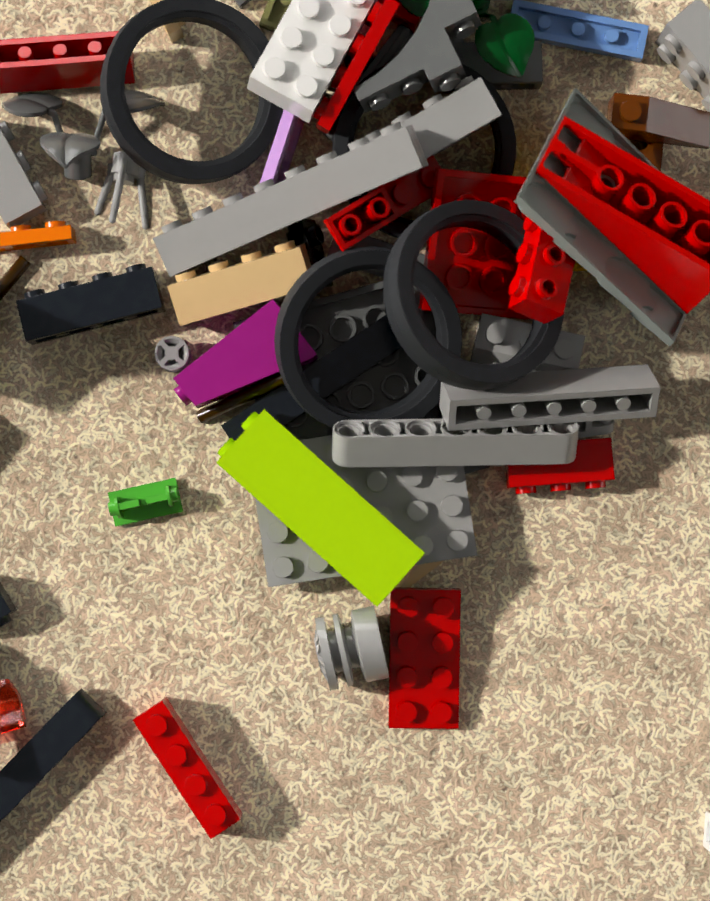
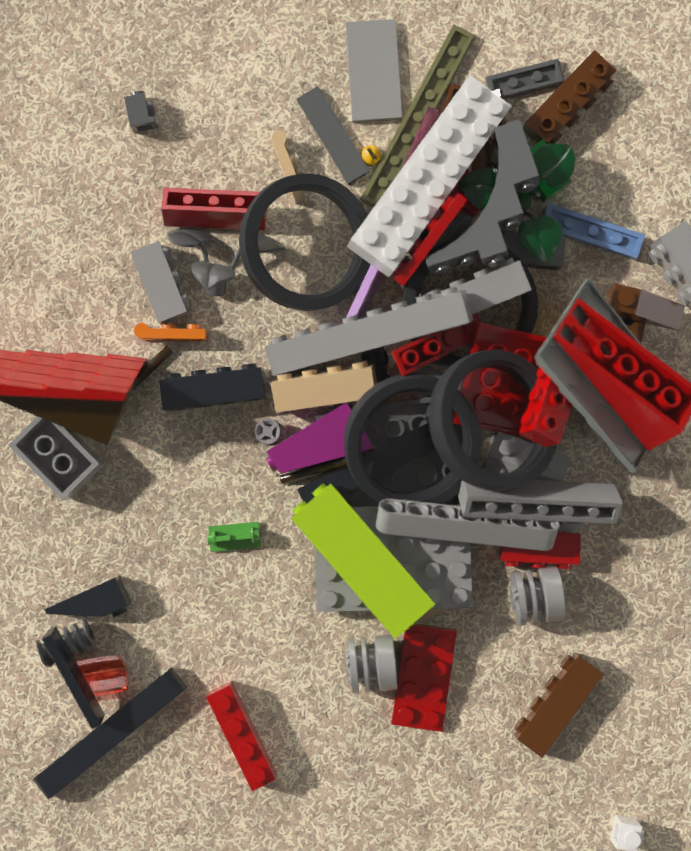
camera: 15 degrees right, 0 degrees up
(123, 172) = (248, 294): light grey plant -> none
(562, 528) = (537, 595): none -> light grey wheel
(609, 672) = (558, 704): none -> reddish brown brick

